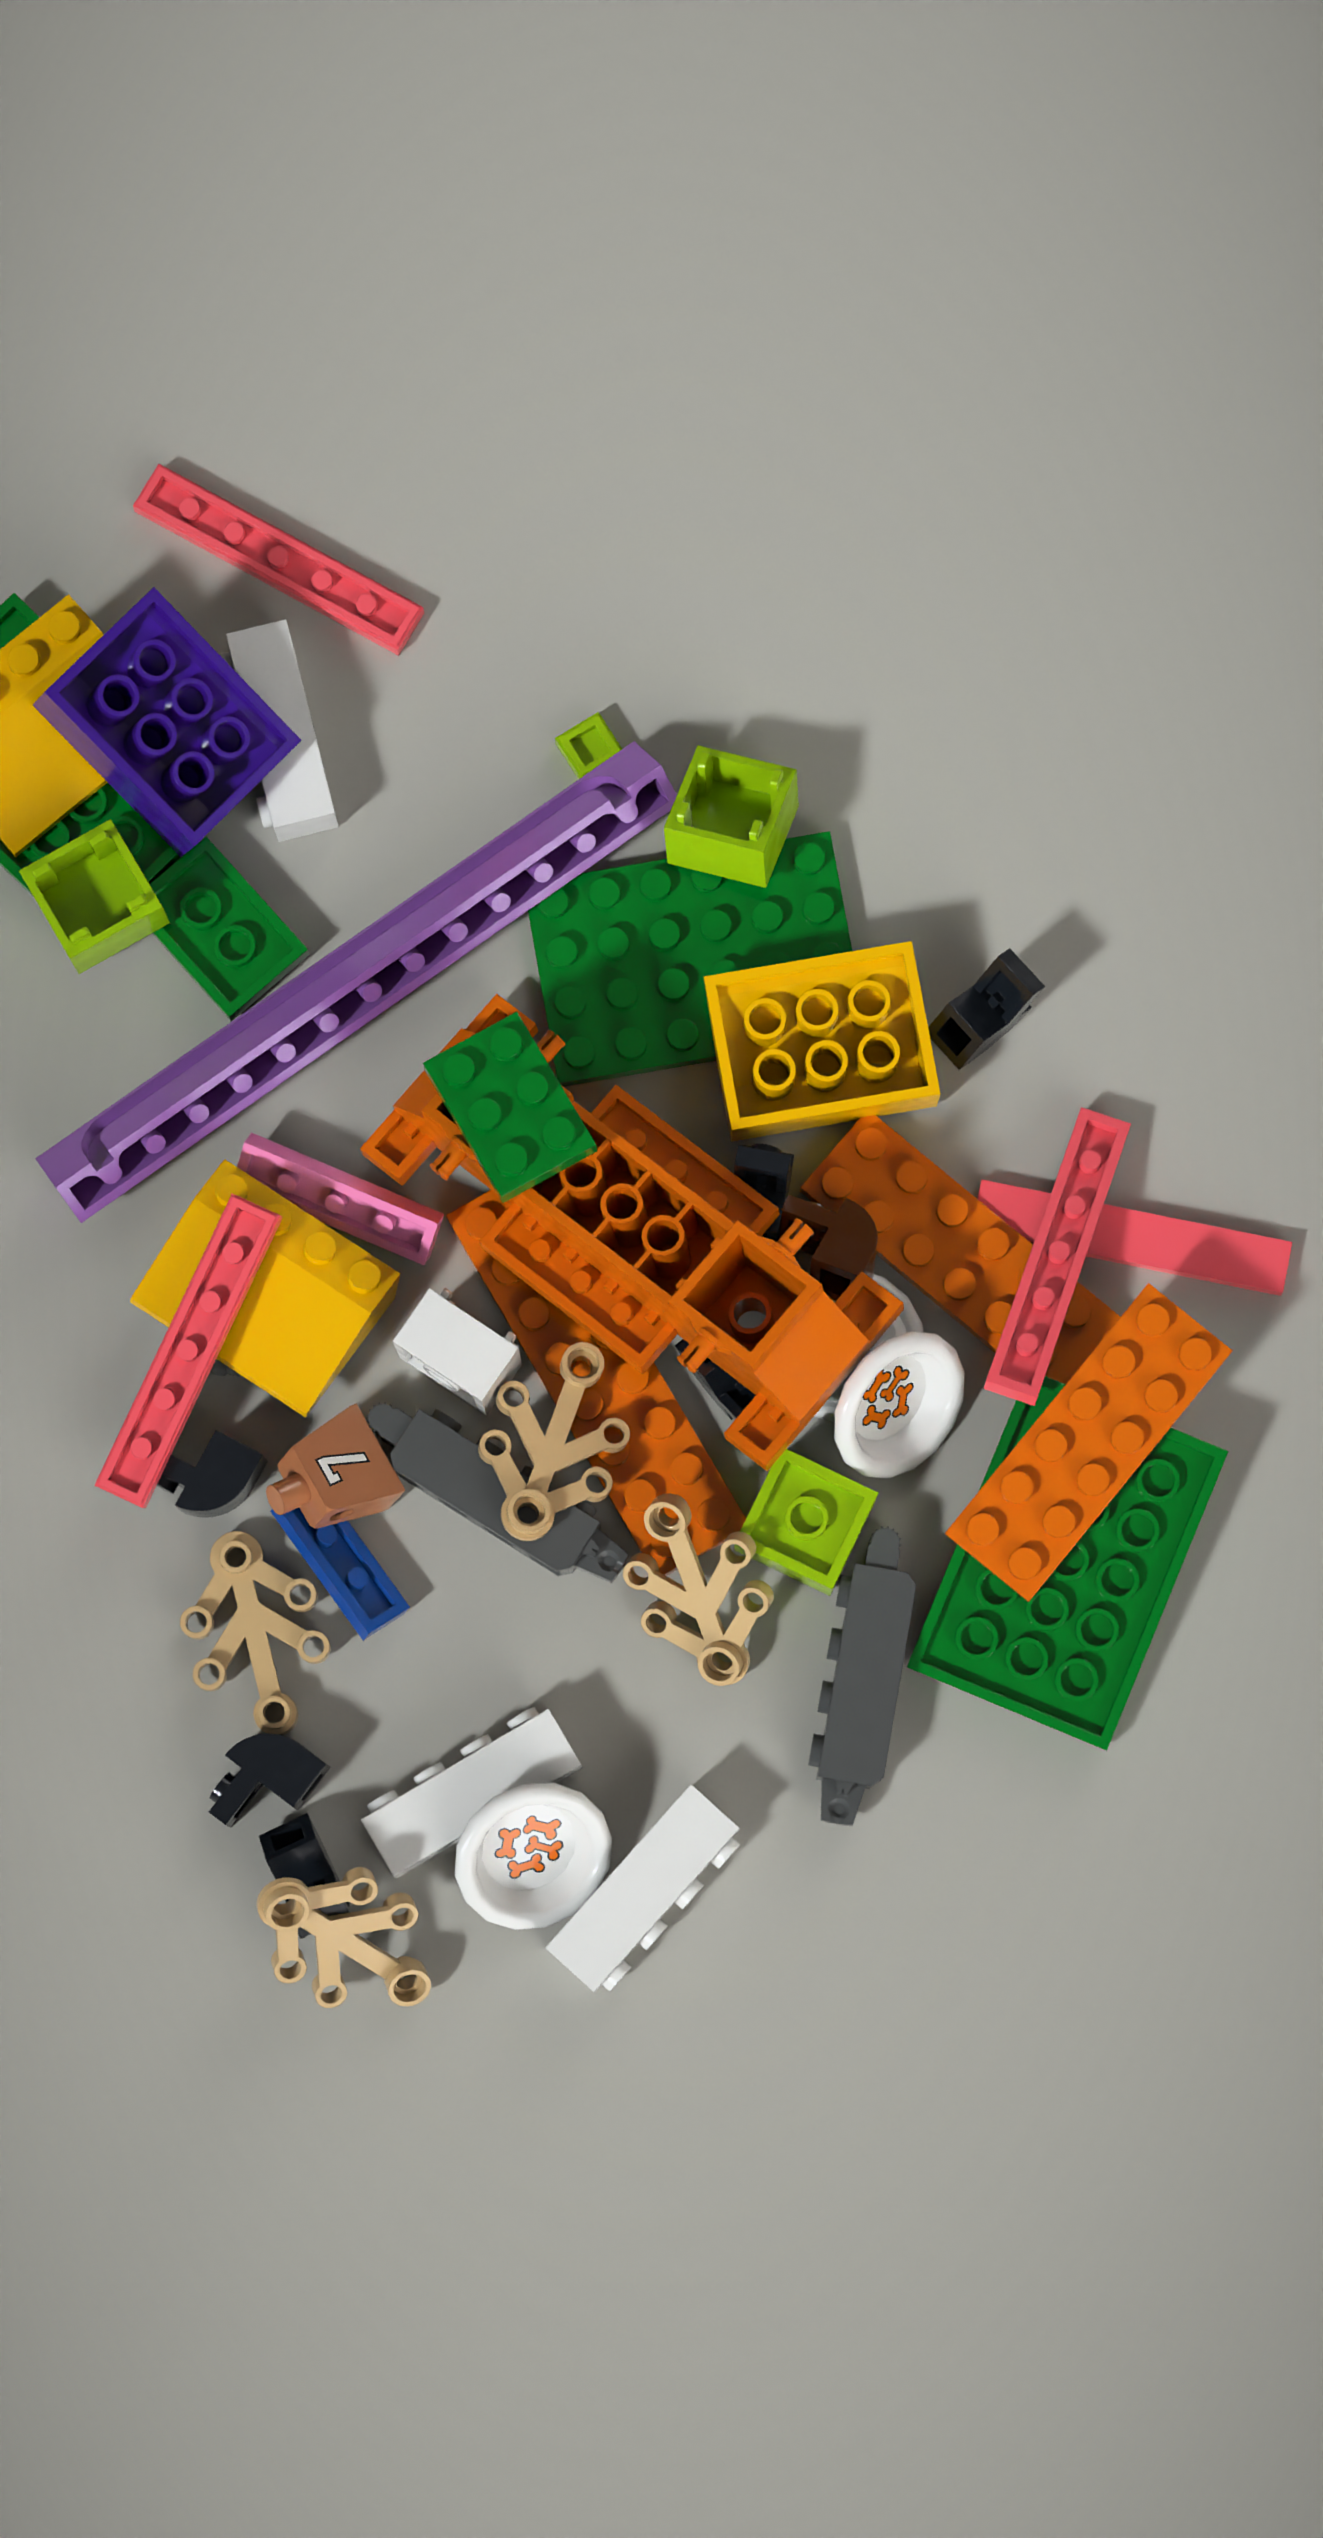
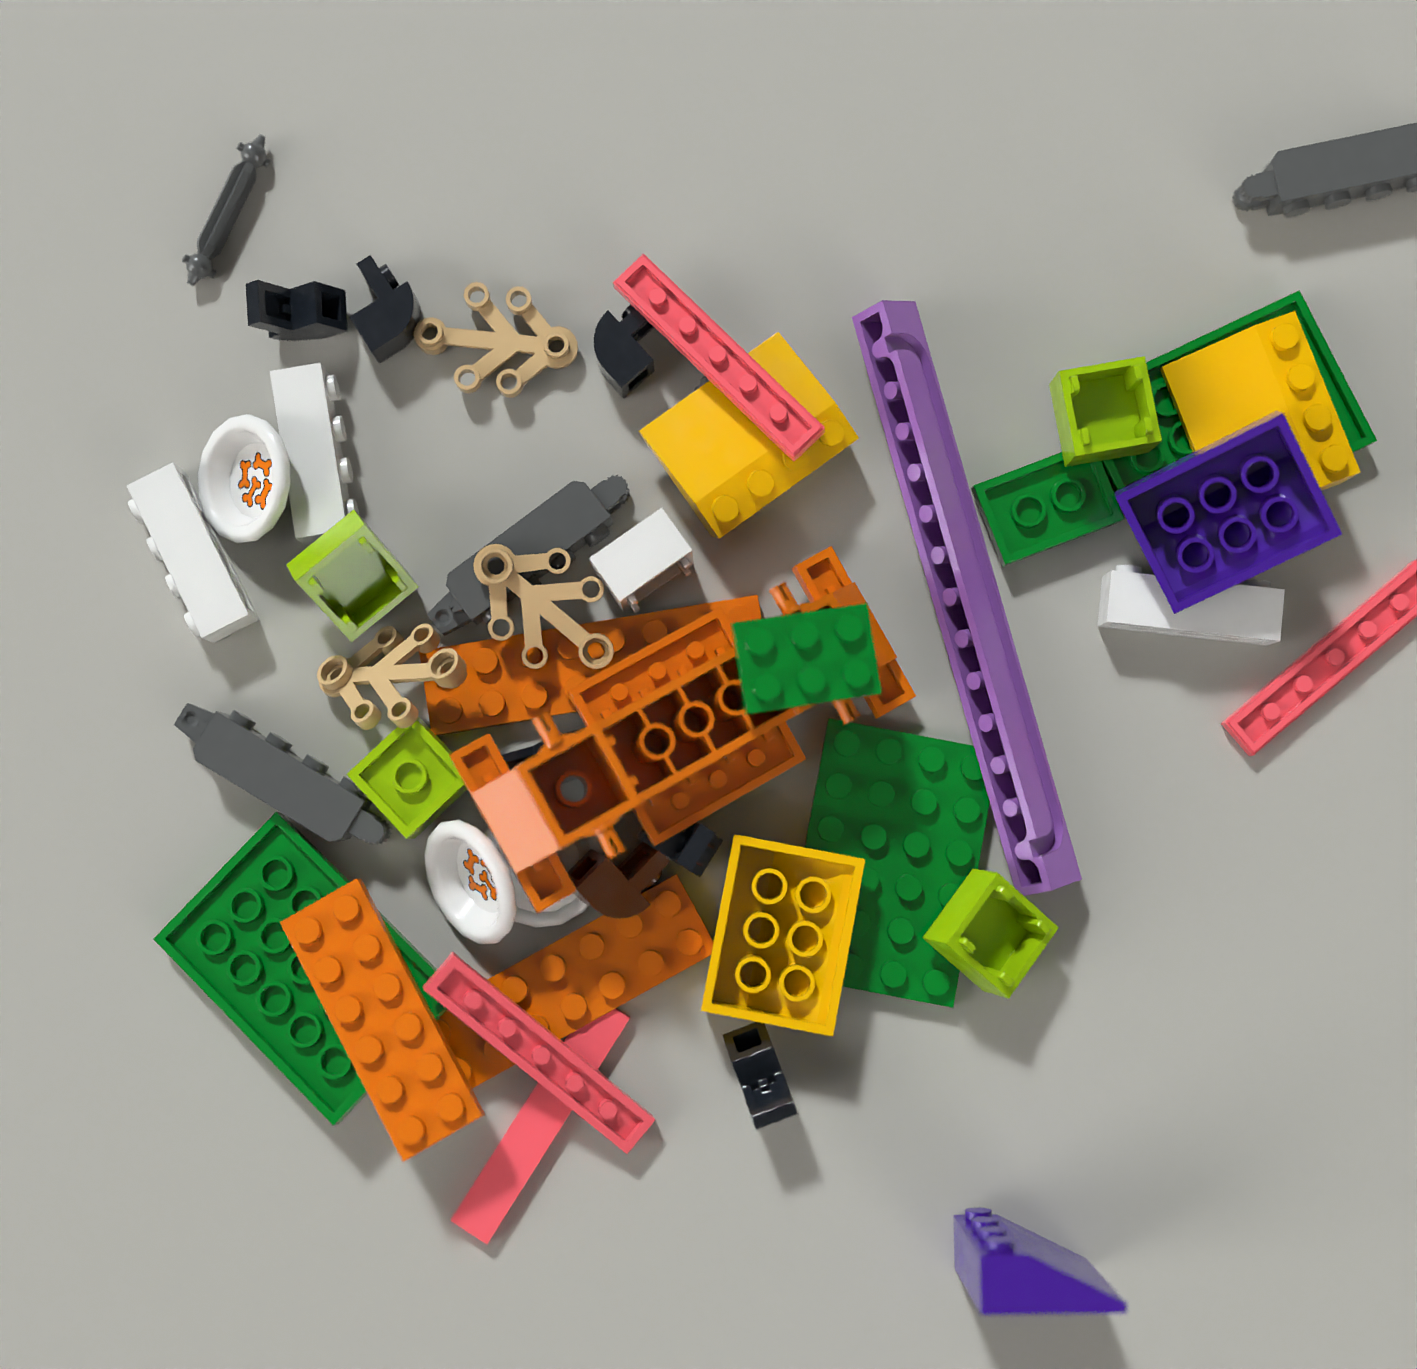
camera: 110 degrees right, 5 degrees up
(210, 2024) = (226, 210): none -> dark grey wheel
(336, 1473) = (587, 436): nougat torso -> none
(341, 1934) = (264, 278): tan plant -> none
(343, 1199) = (800, 518): bright pink plate -> none
(346, 1572) = (524, 421): blue plate -> none
(587, 745) = (1093, 843): lime tile -> none
(600, 1679) = (352, 576): none -> lime container
(1081, 654) = (1024, 1273): none -> dark purple slope

